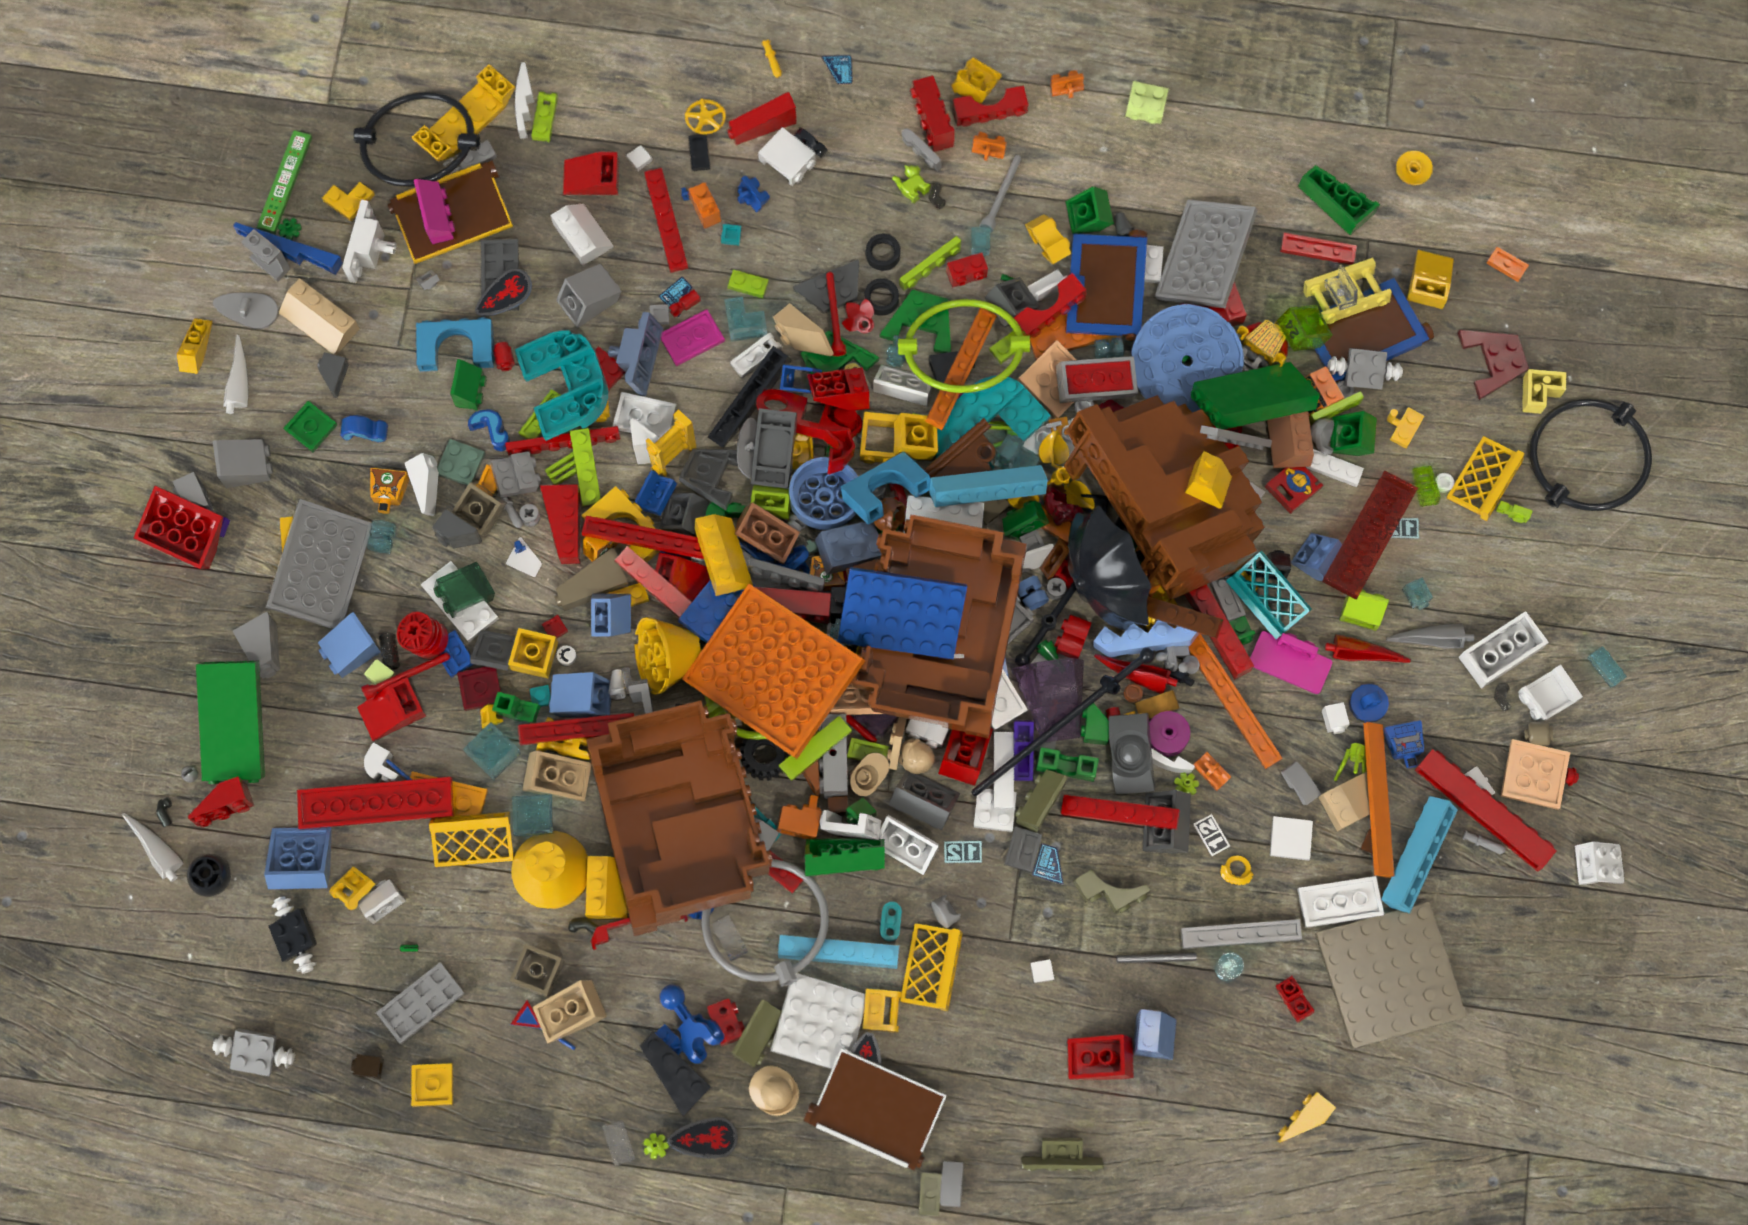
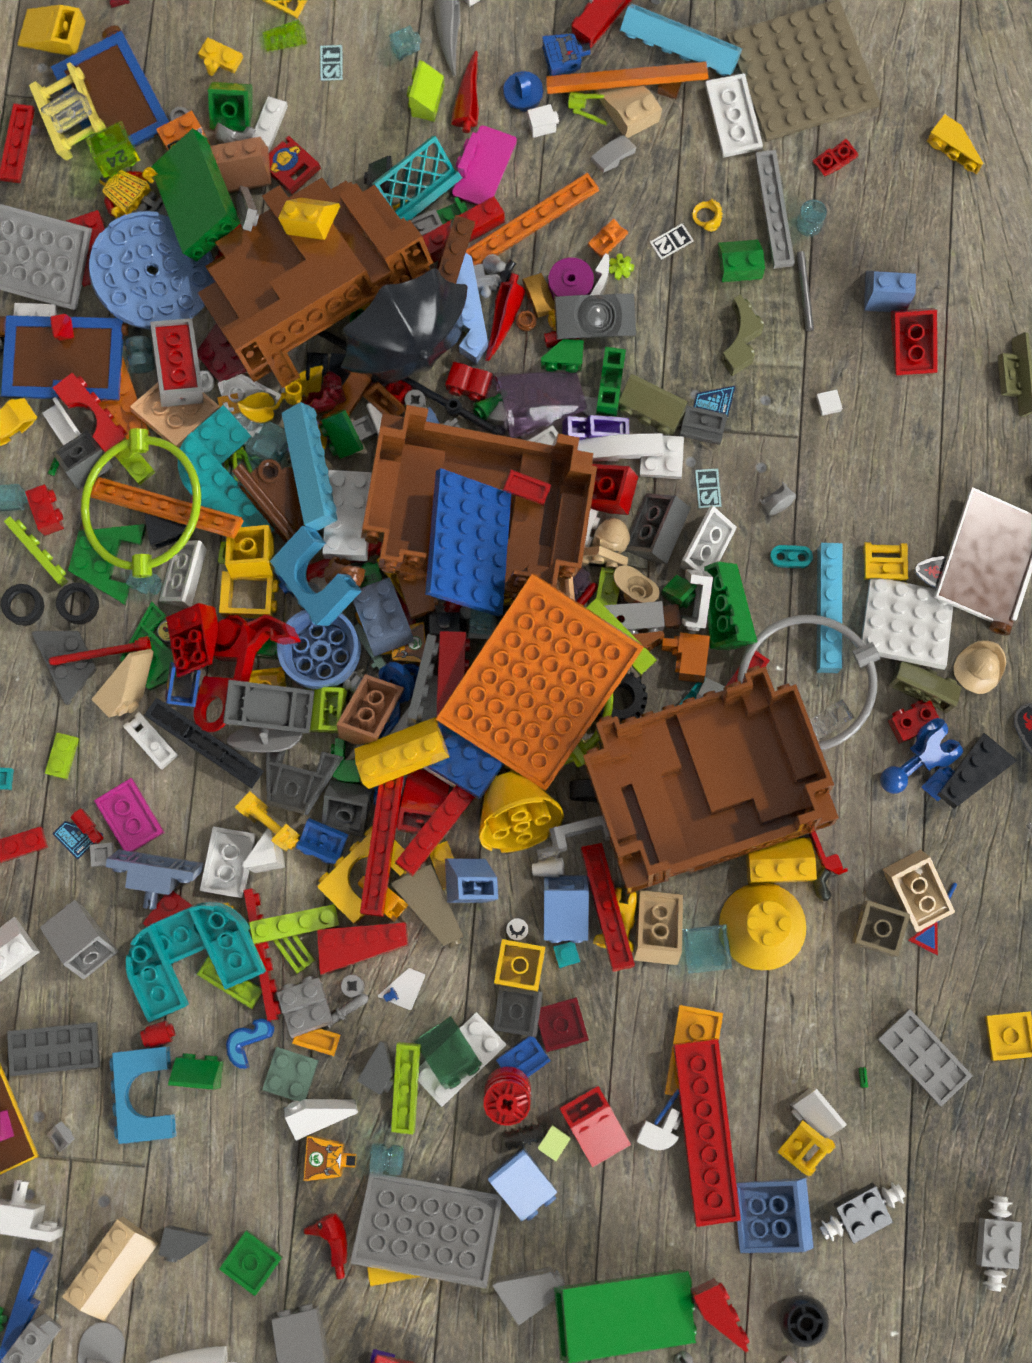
camera: 90 degrees left, 5 degrees up
(327, 492) = (332, 1229): none -> red animal
(364, 428) = (253, 1195): blue animal -> none
(367, 1066) = (1001, 1109): dark brown brick -> none
(371, 690) = (577, 1150): red piece -> none
(438, 553) = (405, 1088): none -> lime plate
(467, 823) = (724, 1018): yellow fence -> none
(479, 507) = (349, 1044): dark tan brick -> none
(488, 716) = (595, 1010): yellow tile -> none
(492, 751) = (637, 1002): clear light blue brick -> none
(504, 293) = (80, 1037): shield -> none
(515, 708) = (585, 978): green brick -> none
(555, 627) = (485, 945): red tile -> none
(742, 324) = (113, 759): clear light blue brick -> none
(858, 314) = (99, 627): red plate -> none
(948, 970) = (840, 495): yellow fence -> none
(953, 669) = (527, 487): none -> red tile
(1109, 685) = (523, 339): black bar -> none
(1120, 812) = (660, 323): red plate -> none
(1131, 282) = (62, 327): none -> red slope
(1168, 840) = (664, 283): dark grey slope -> none
(1189, 897) = (741, 260): none -> green slope
(1291, 838) = (670, 163): white tile -> none
(1317, 555) = (368, 136): medium blue slope -> none
(1337, 408) = (192, 105): lime tile -> none
(1365, 368) = (157, 92): light grey plate -> none
(1370, 535) = (346, 82): clear red plate -> none
(1444, 482) = (280, 17): white tile -> none

